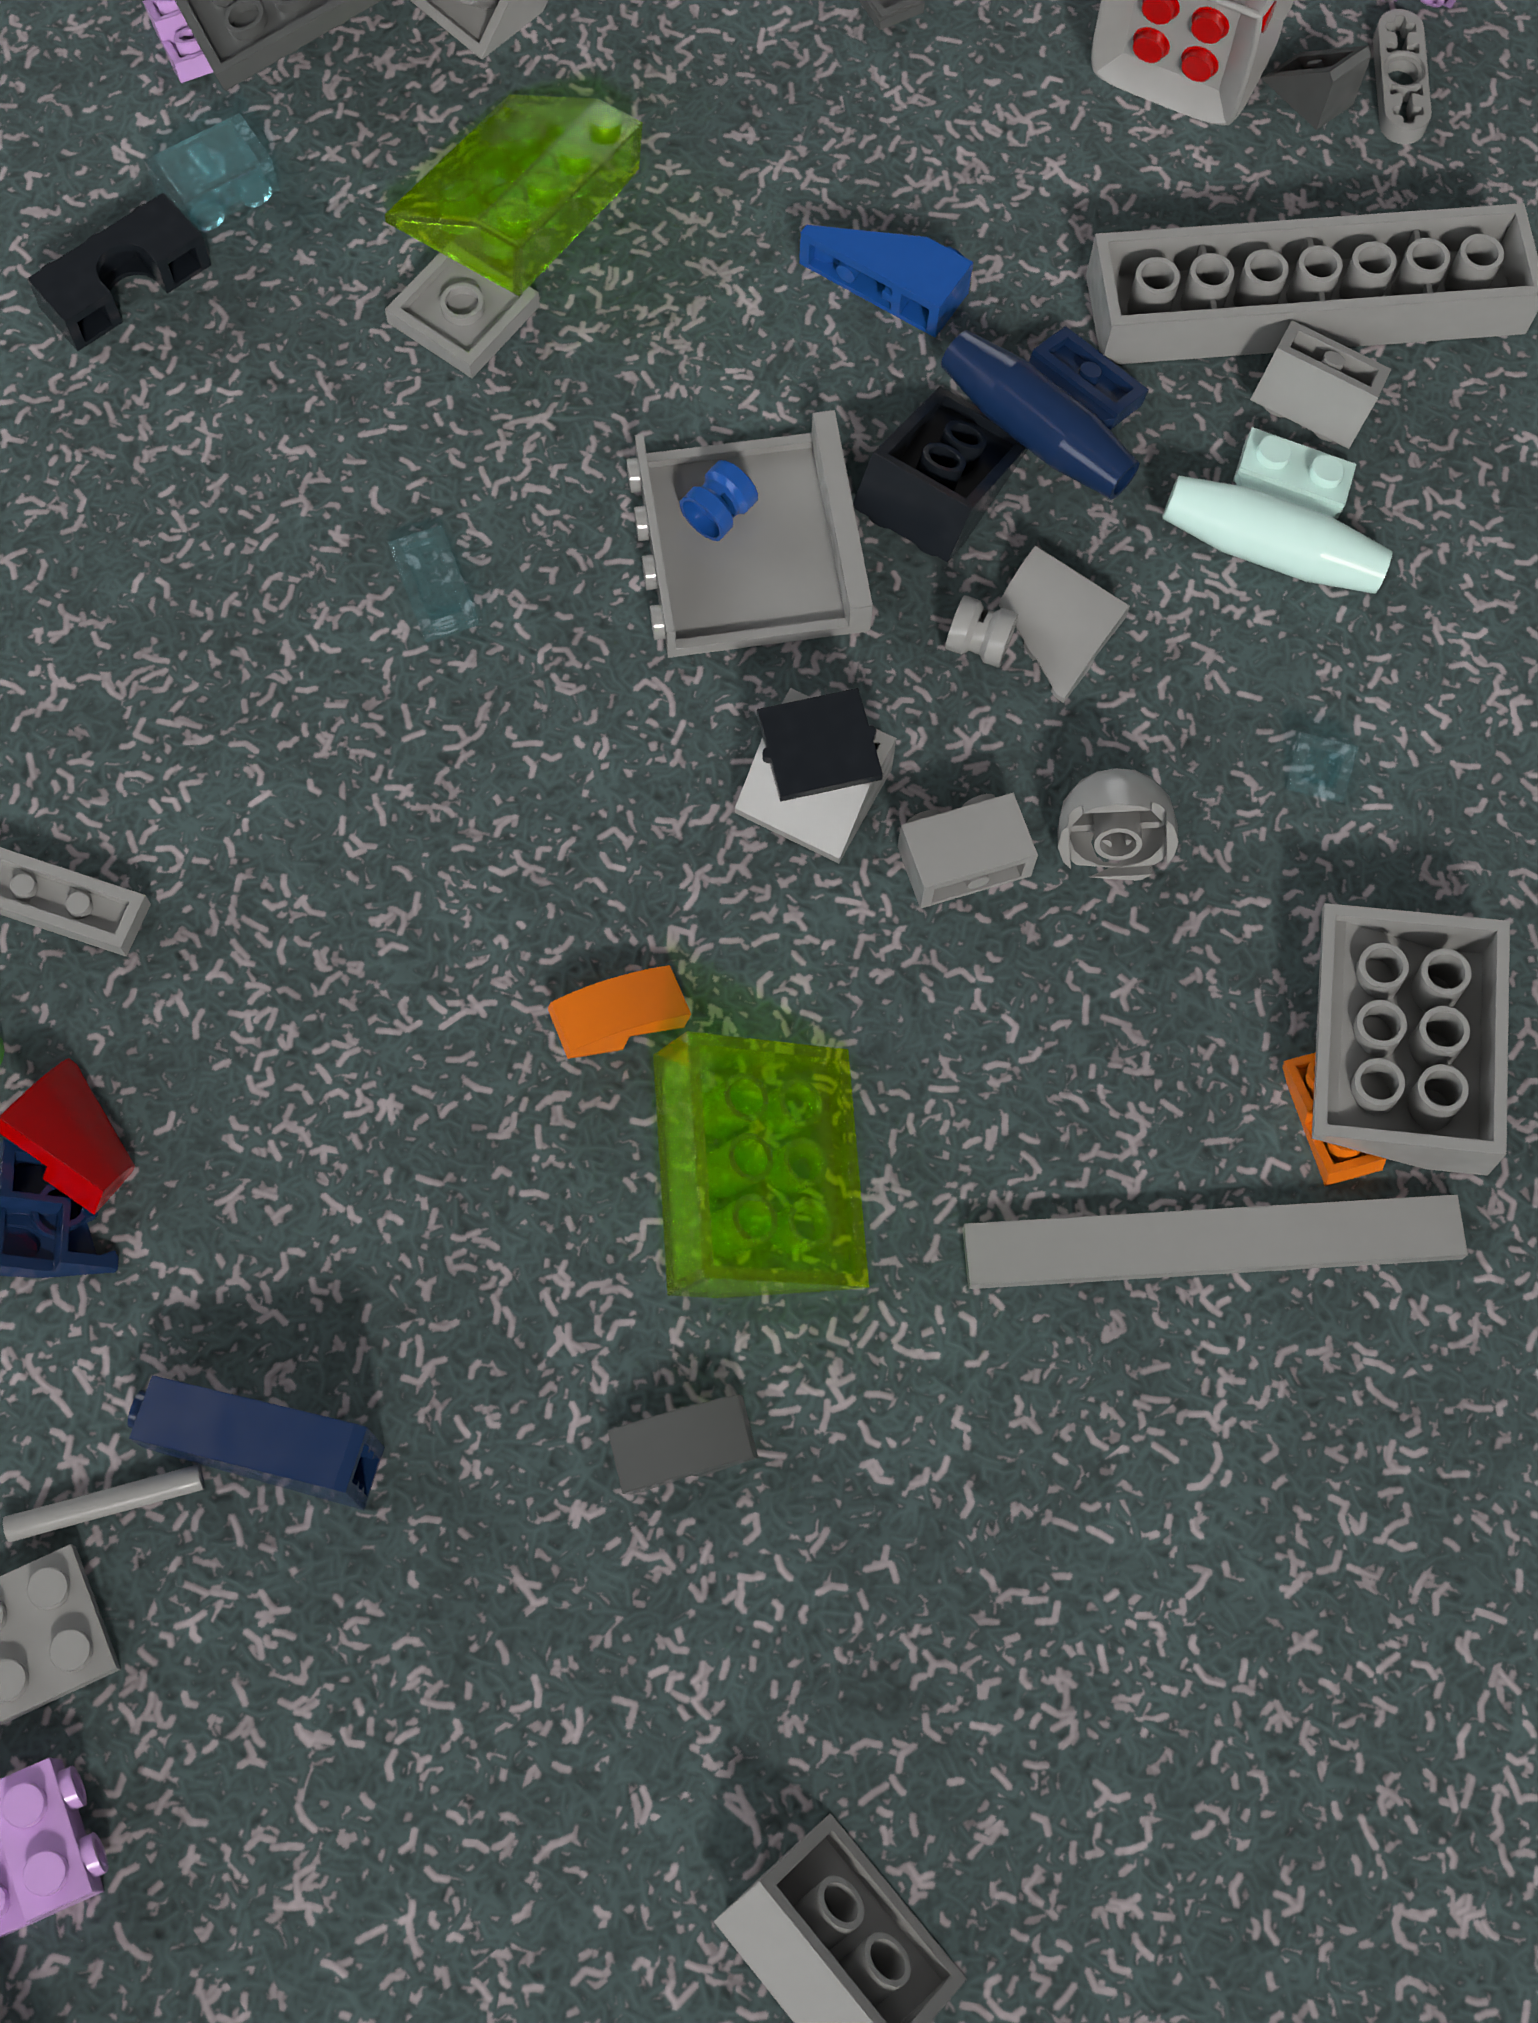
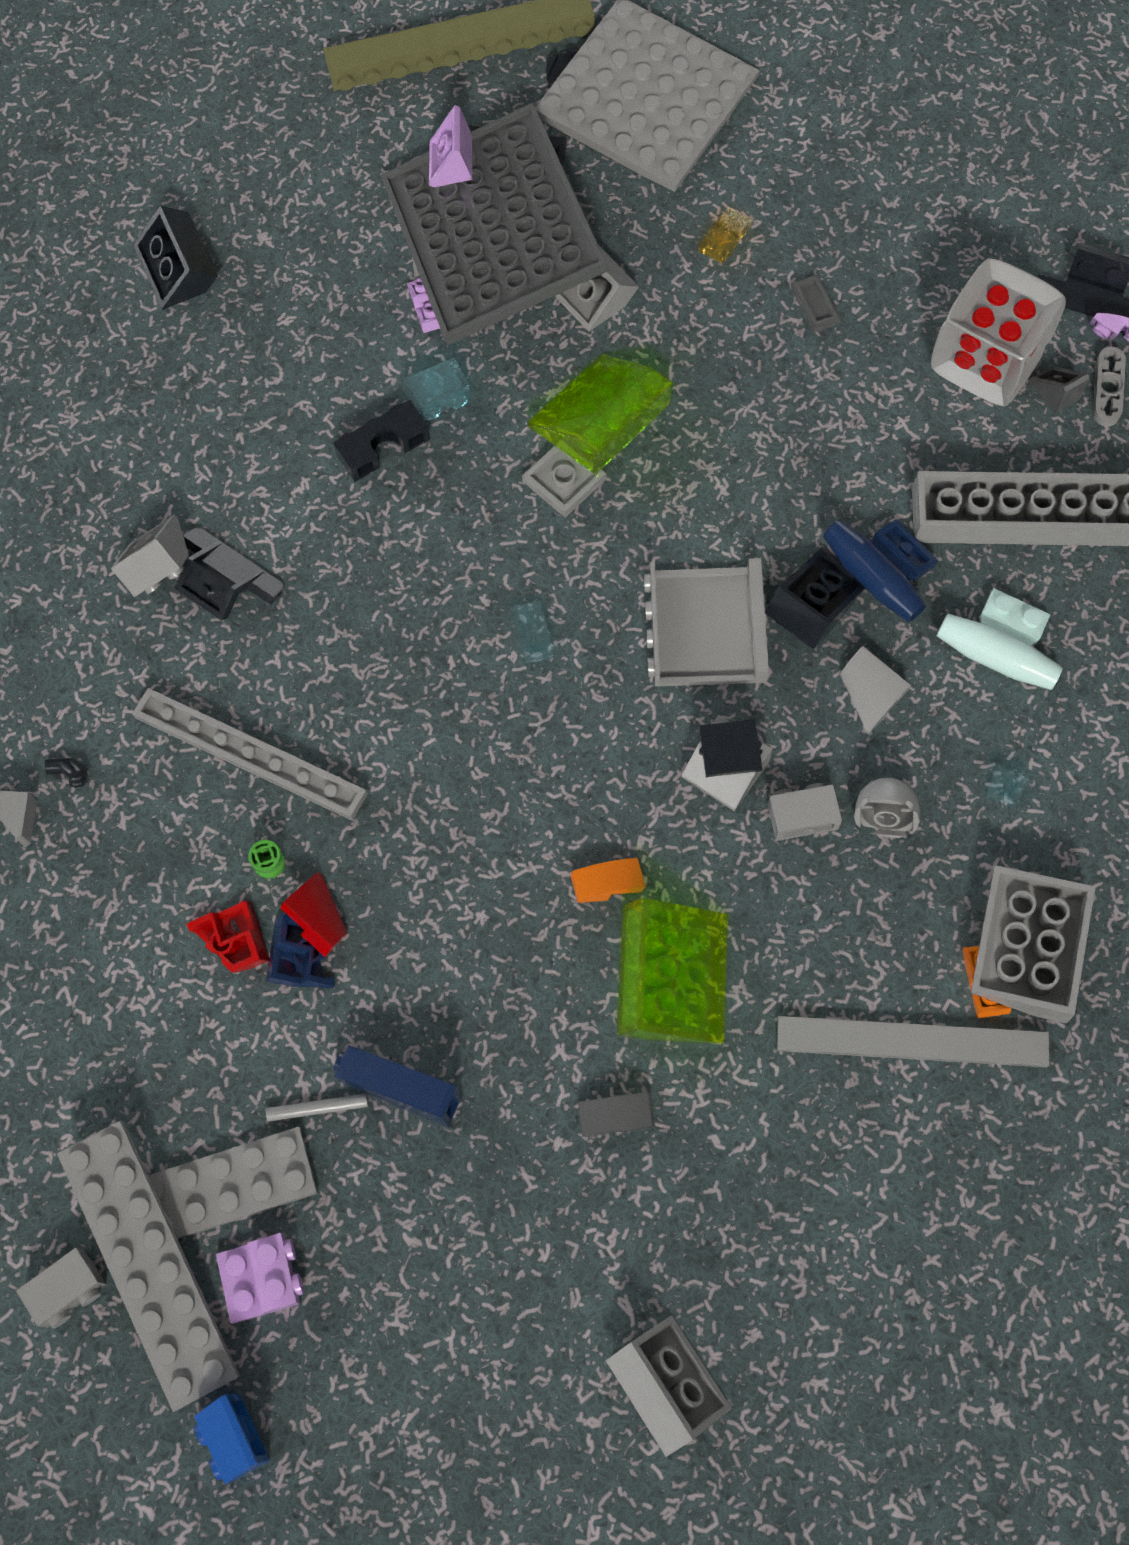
camera: 15 degrees right, 0 degrees up
(719, 500) = (692, 602): blue wheel -> none
(891, 270) = (805, 479): blue slope -> none
(981, 631) = (827, 690): light grey wheel -> none
(1320, 385) = (1035, 568): light grey brick -> none

